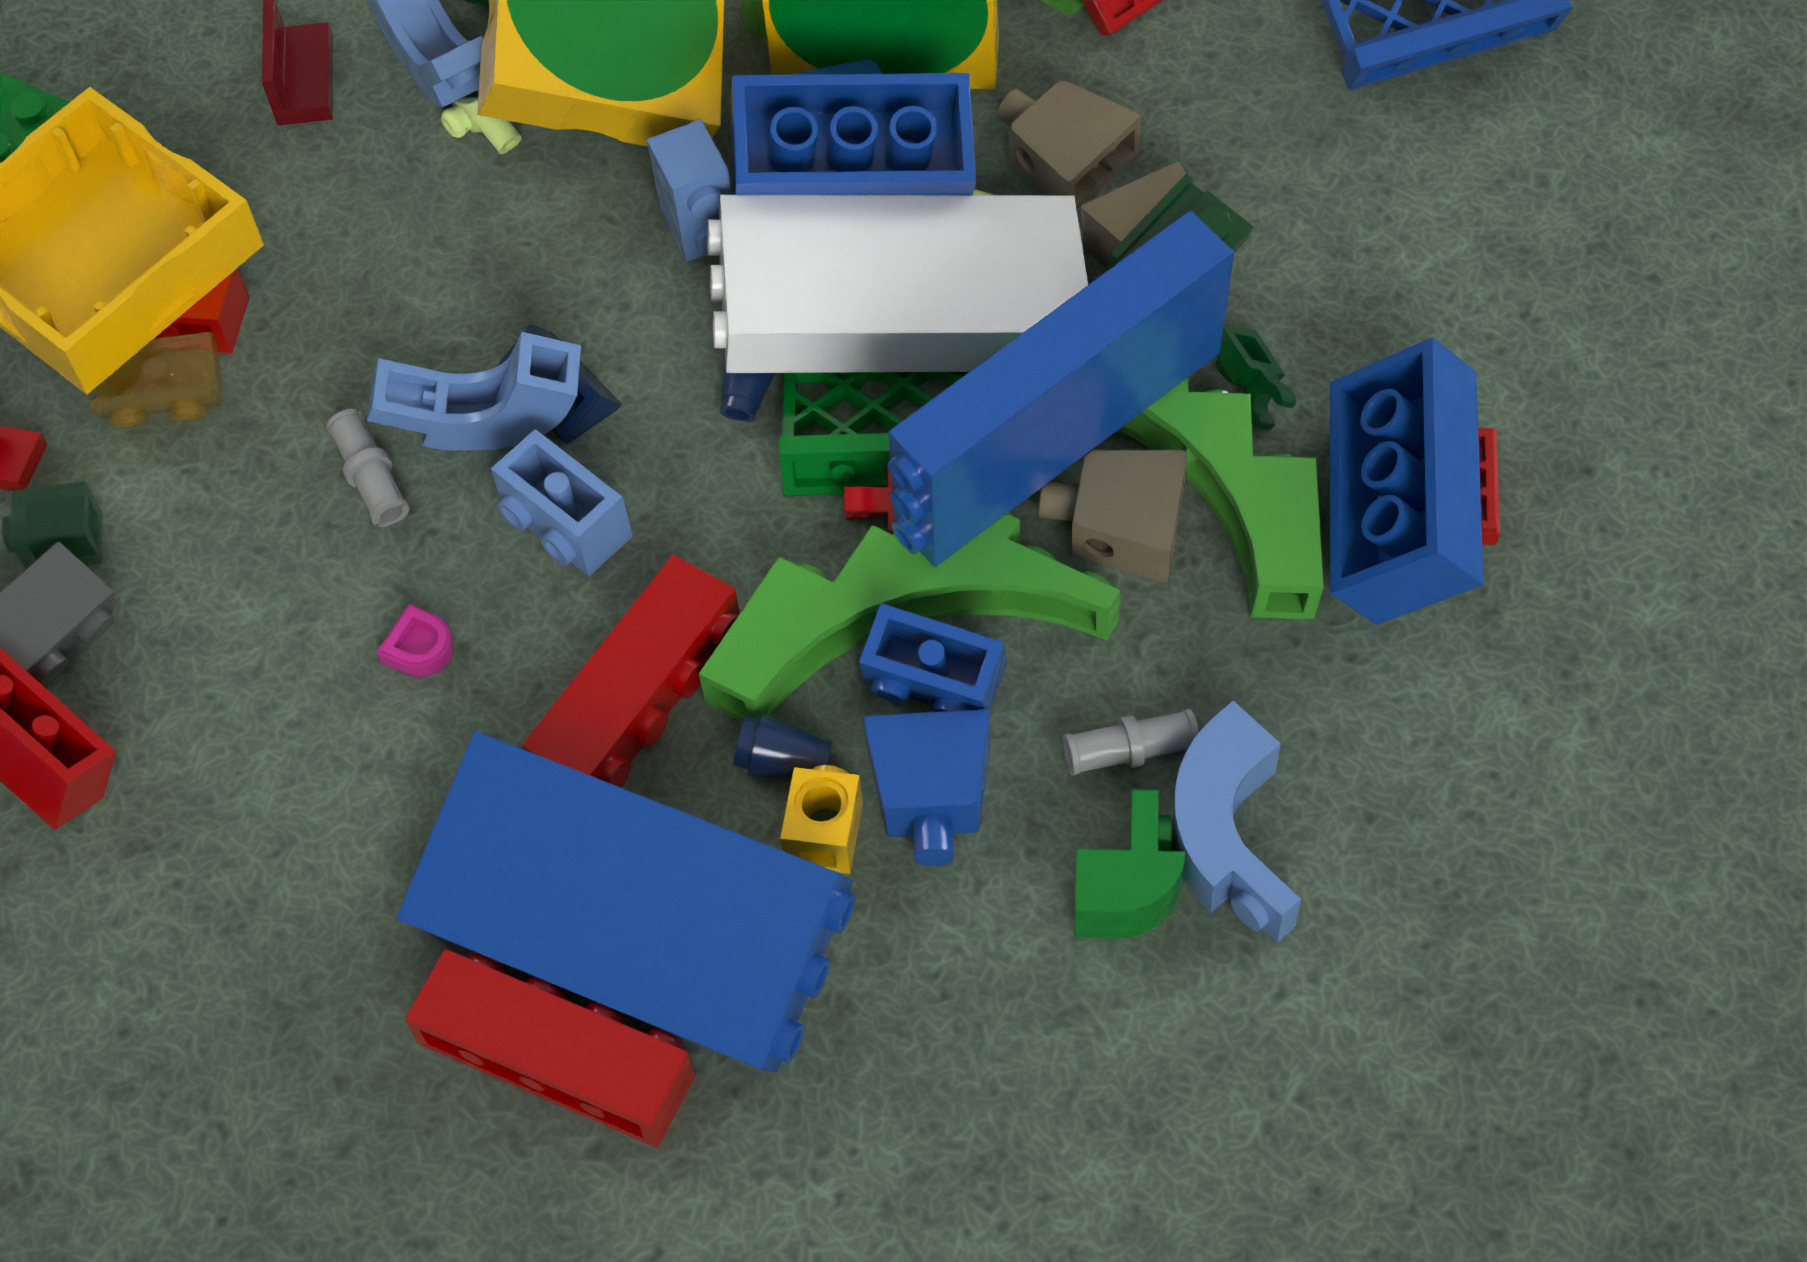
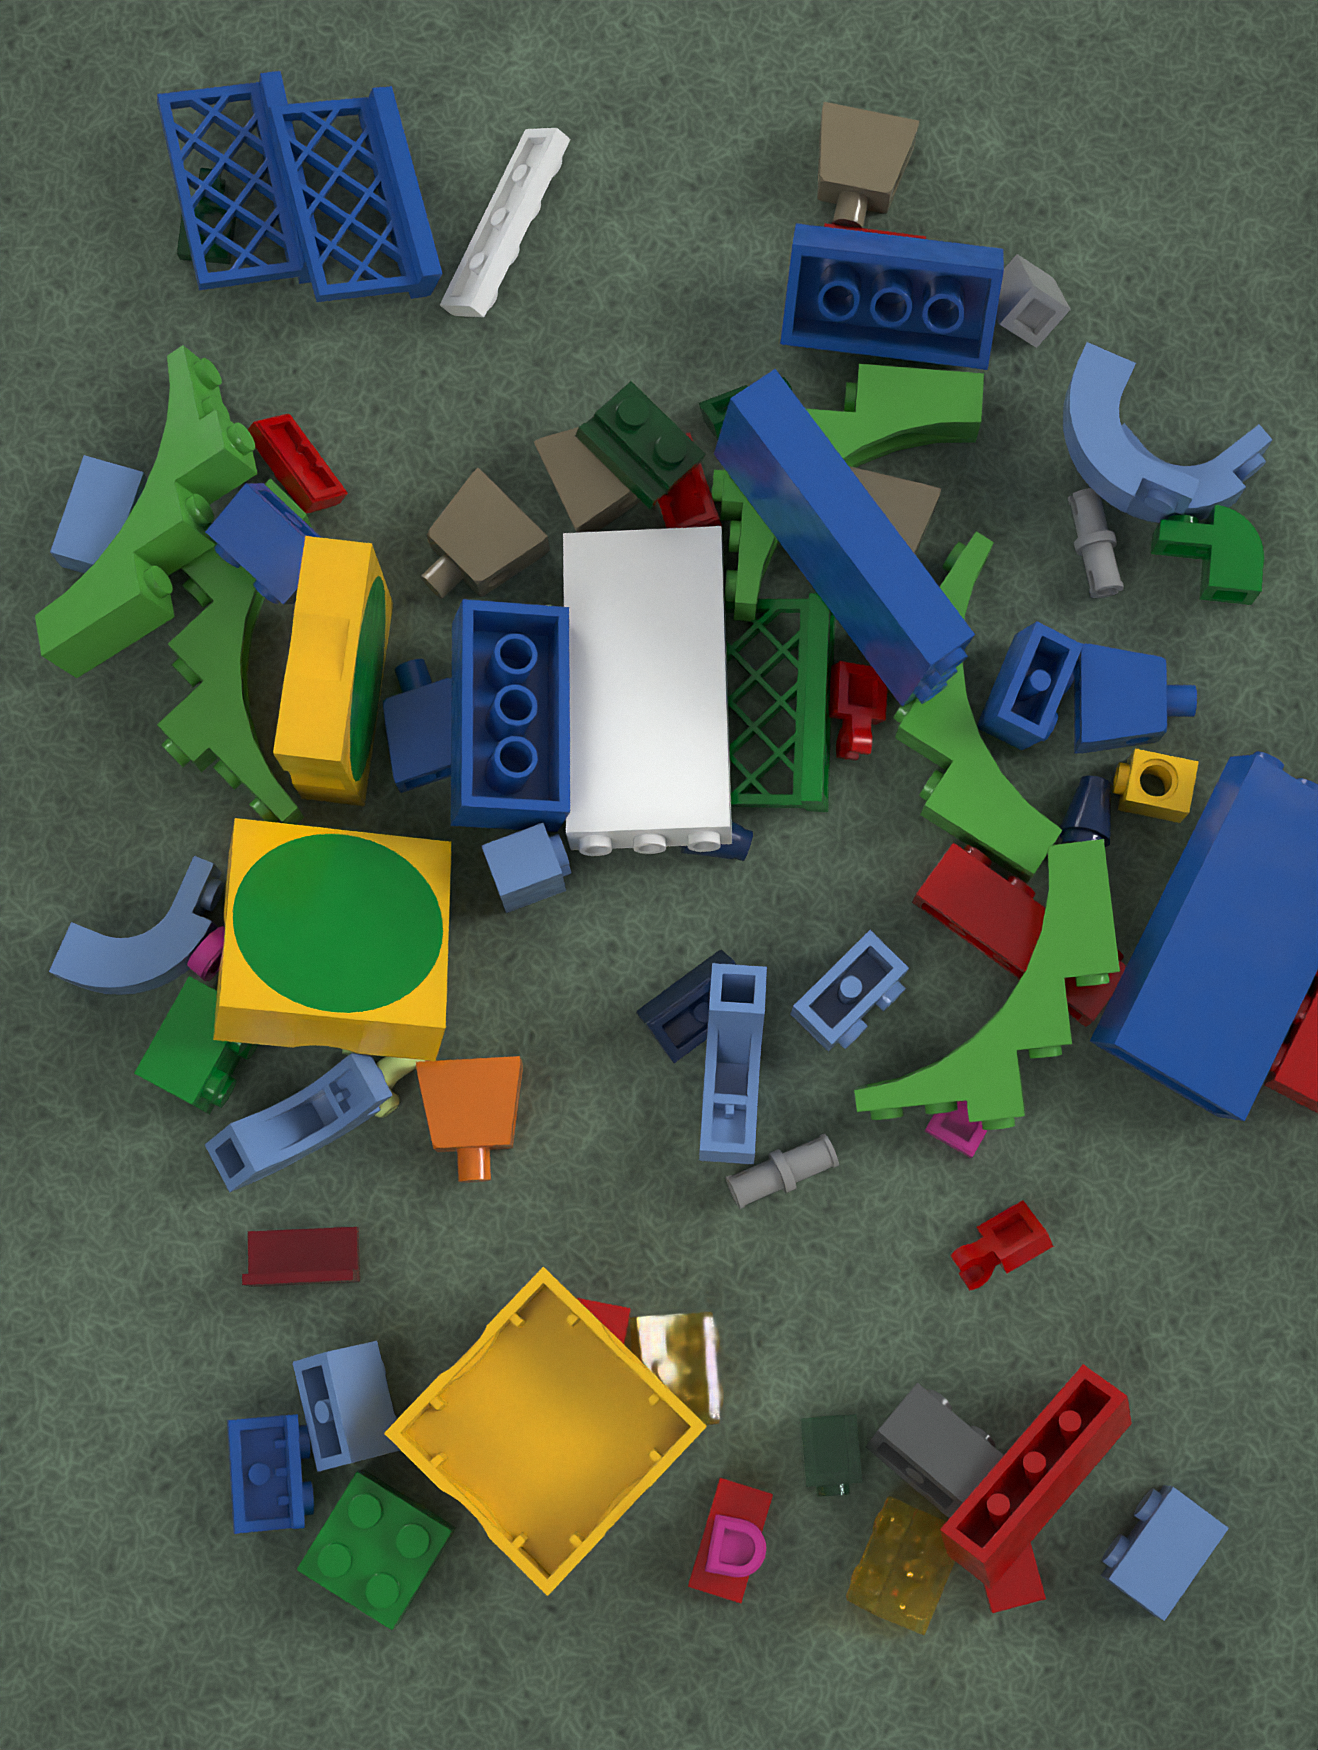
camera: 90 degrees left, 20 degrees up
(87, 54) = (268, 1473): none -> blue bracket
(158, 96) = (346, 1404): none -> medium blue brick
(272, 689) = (1005, 1240): none -> red plate
(443, 184) = (471, 1109): none -> orange torso
(590, 687) = (985, 1070): none -> bright green arch
(1248, 691) = (1102, 449): none -> medium blue arch
(1436, 649) = (1029, 301): none -> light grey panel
(1463, 142) = (505, 222): none -> white plate
(1583, 462) = (861, 160): none -> dark tan torso

